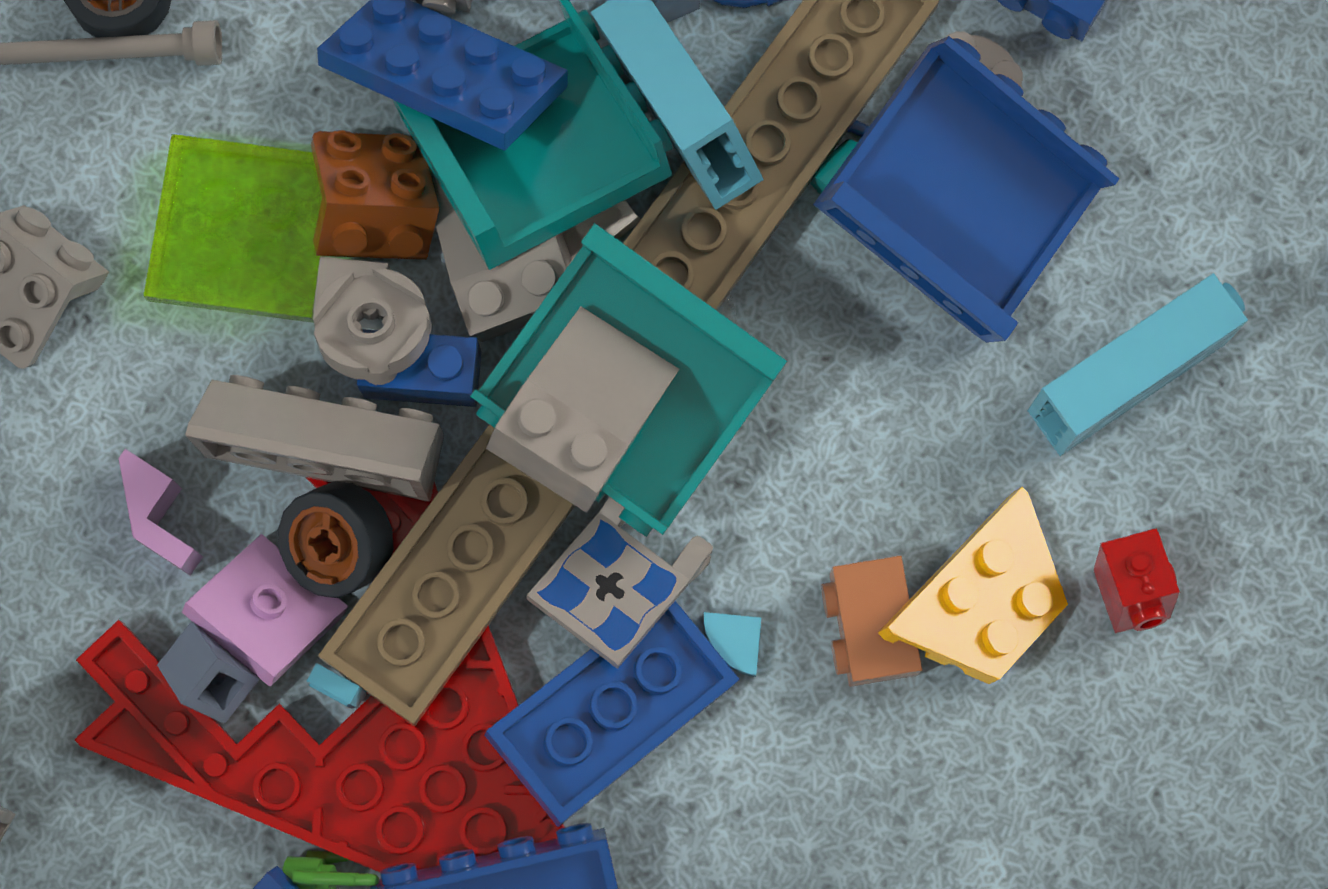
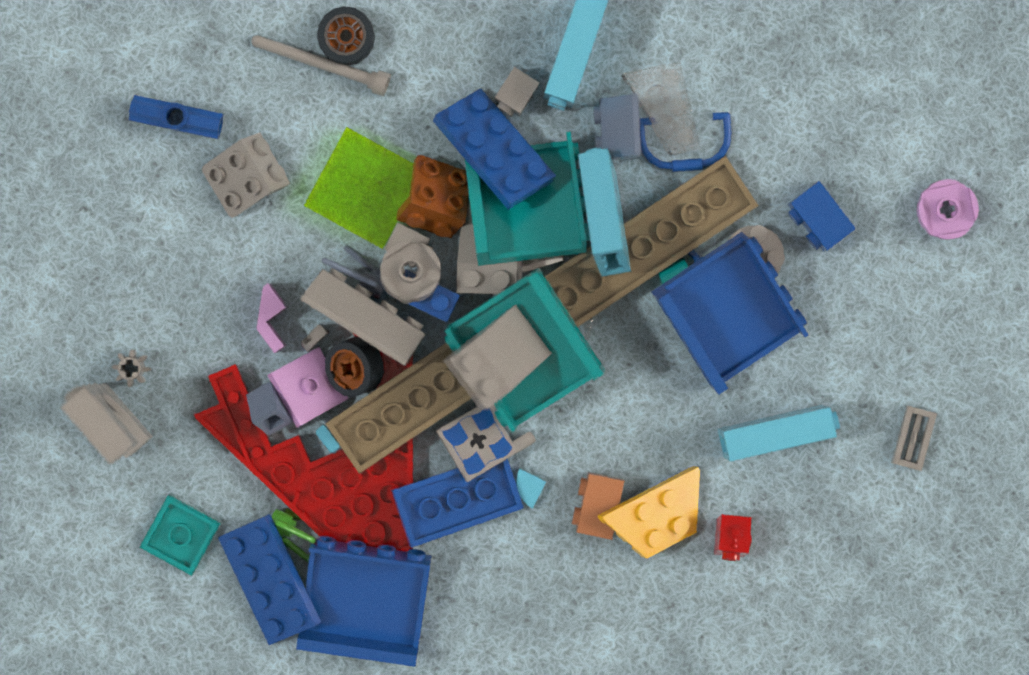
camera: 20 degrees right, 10 degrees up
(252, 509) = (314, 337): none -> light grey tile
(311, 372) = (368, 280): none -> sand blue plant

